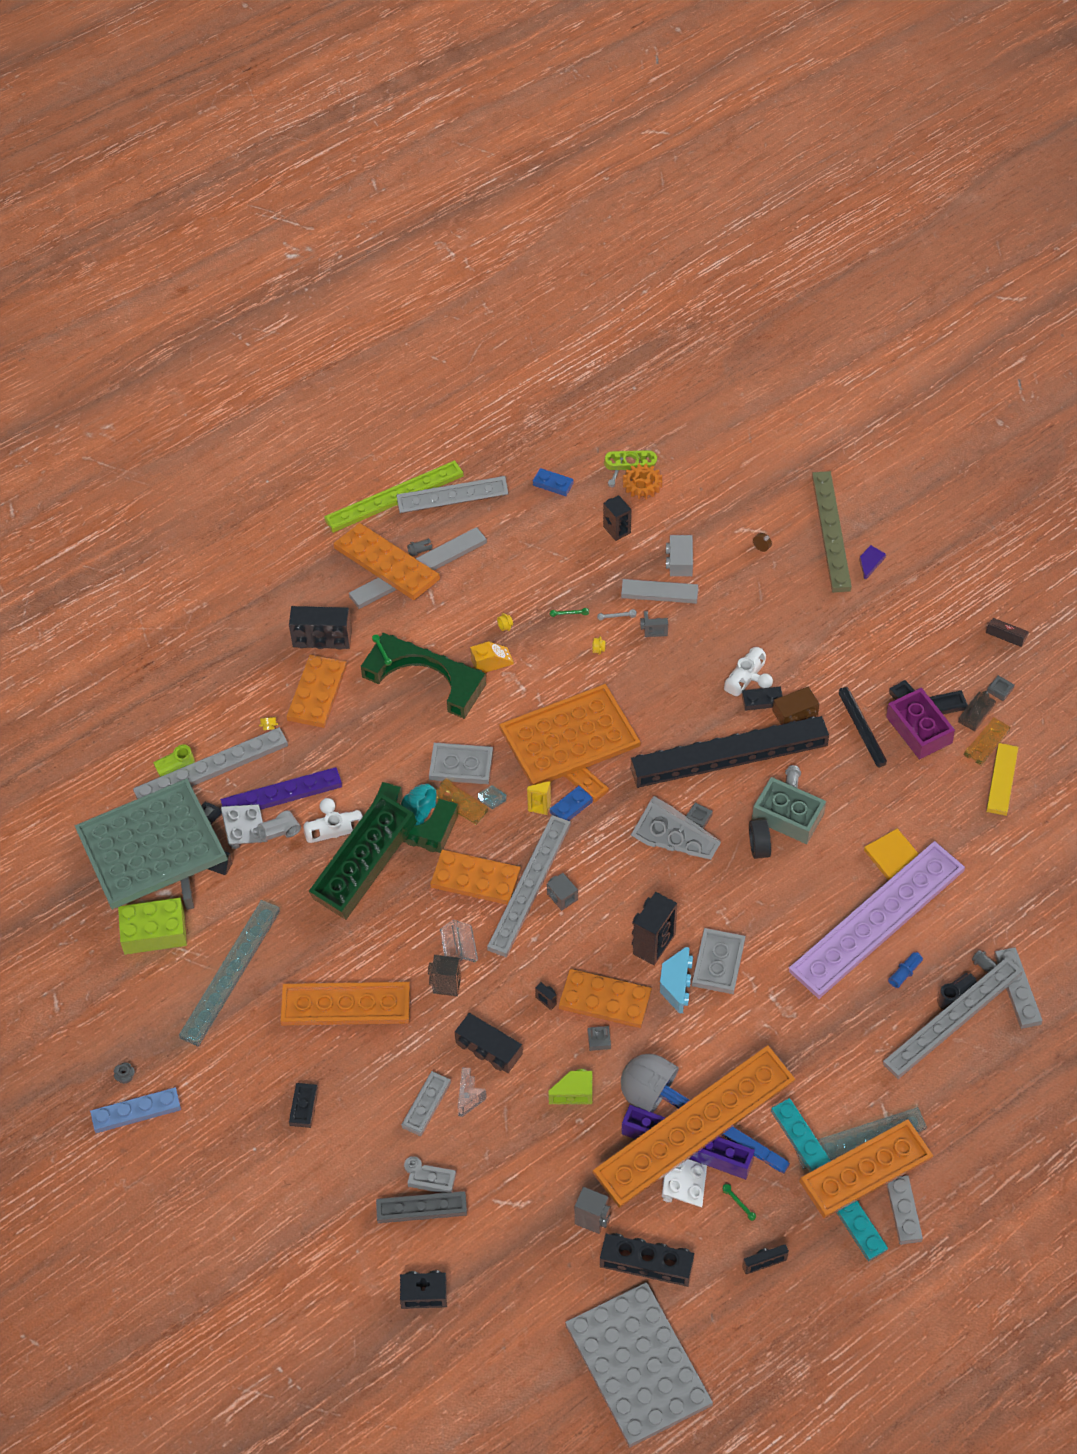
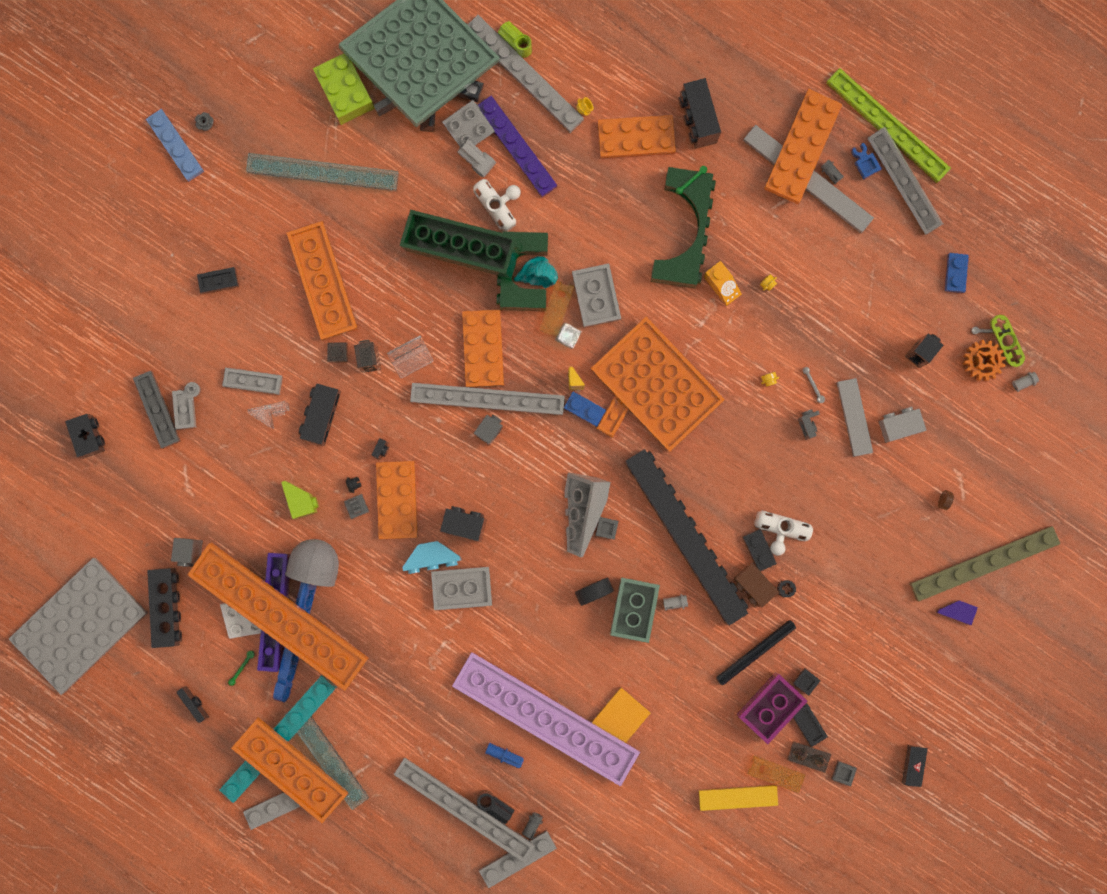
camera: 70 degrees right, 30 degrees up
(423, 519) = (866, 164): none -> blue plate
(427, 1012) = (337, 352): none -> clear smoke plate
(573, 1034) = (352, 484): none -> black piece
(585, 611) = (796, 324): green hinge -> none
(672, 456) = (1025, 381): none -> light grey pin
(807, 681) = (782, 592): none -> black bush

